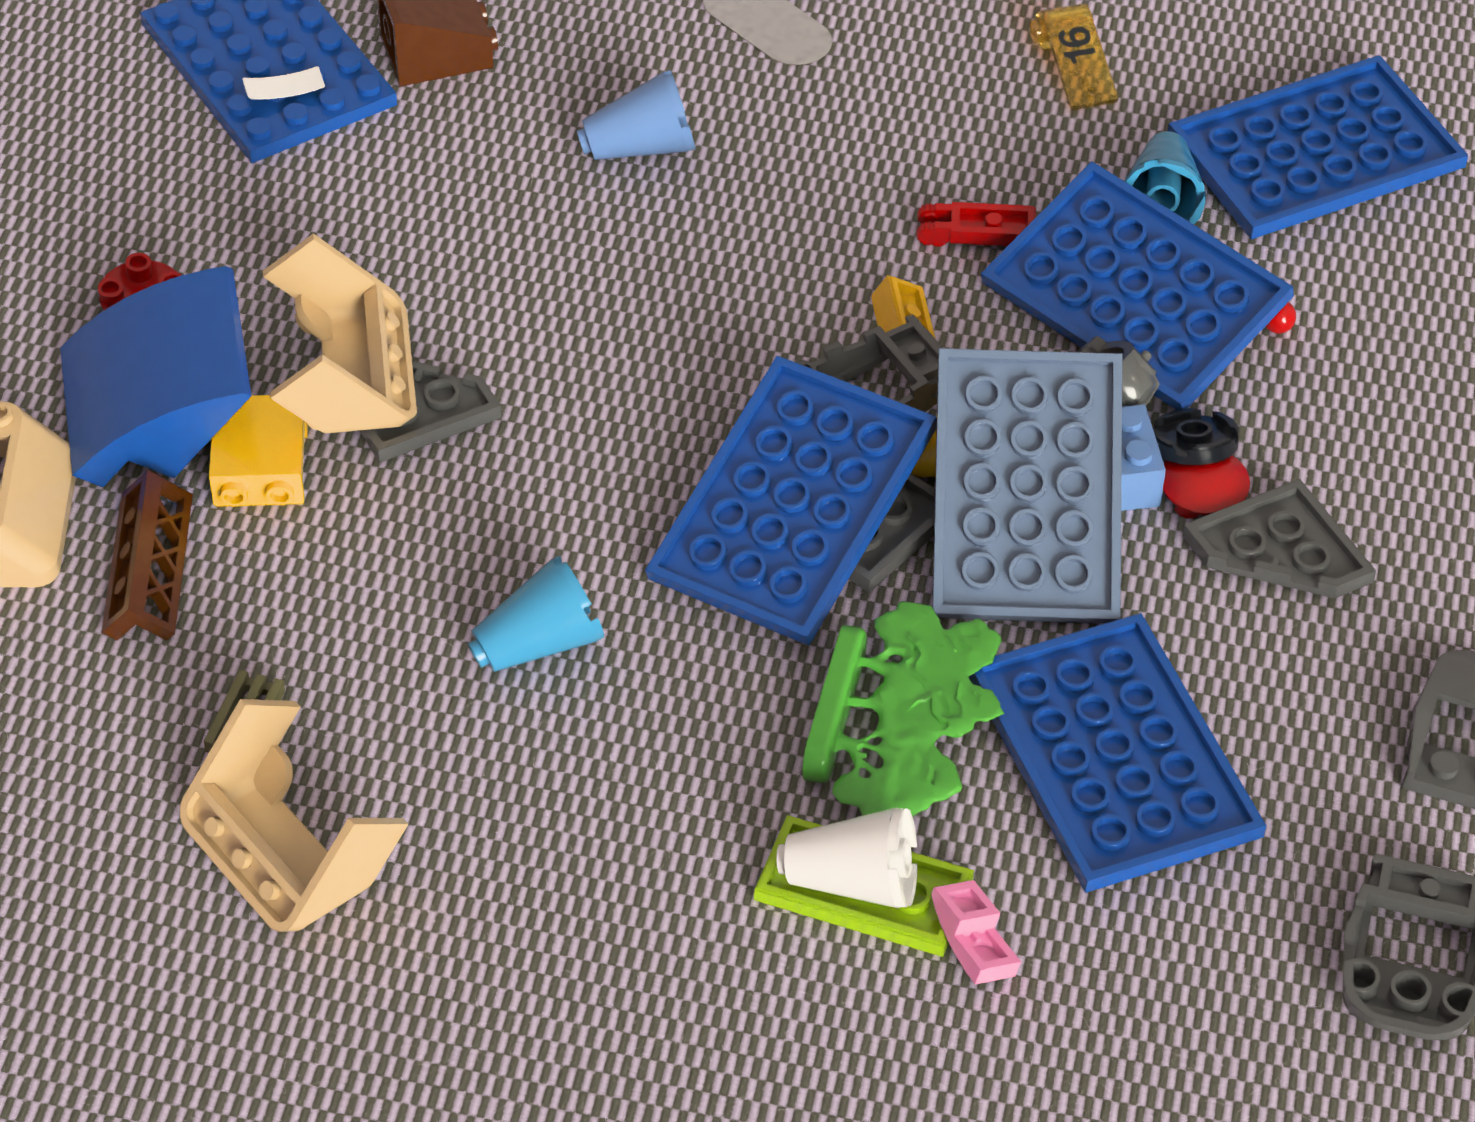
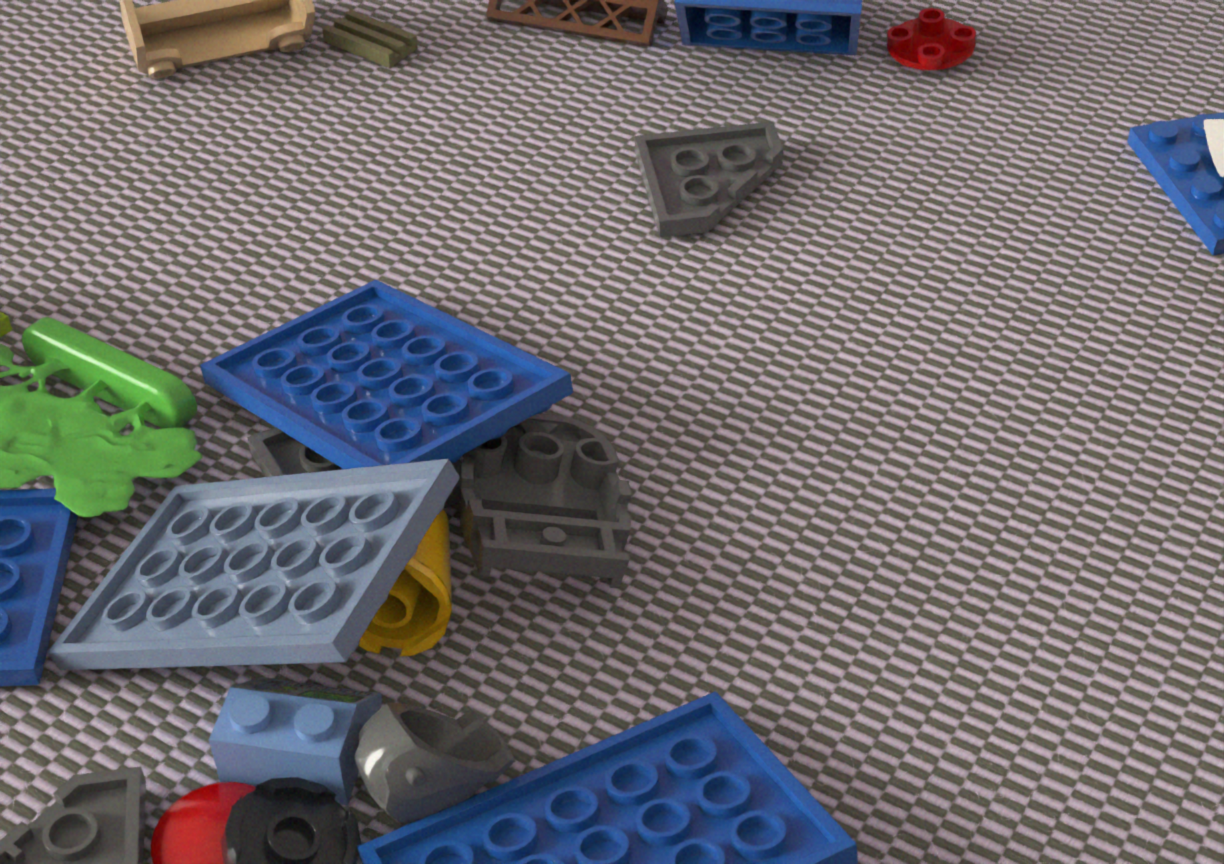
camera: 110 degrees right, 5 degrees down
(258, 456) = (676, 65): yellow panel -> none
(364, 333) = (689, 129): tan windscreen -> none
(536, 620) = (345, 199): dark azure cone -> none
(639, 123) = (1108, 422): medium blue cone -> none
(898, 299) = (679, 606): yellow slope -> none
(972, 223) = (828, 729): red hinge -> none

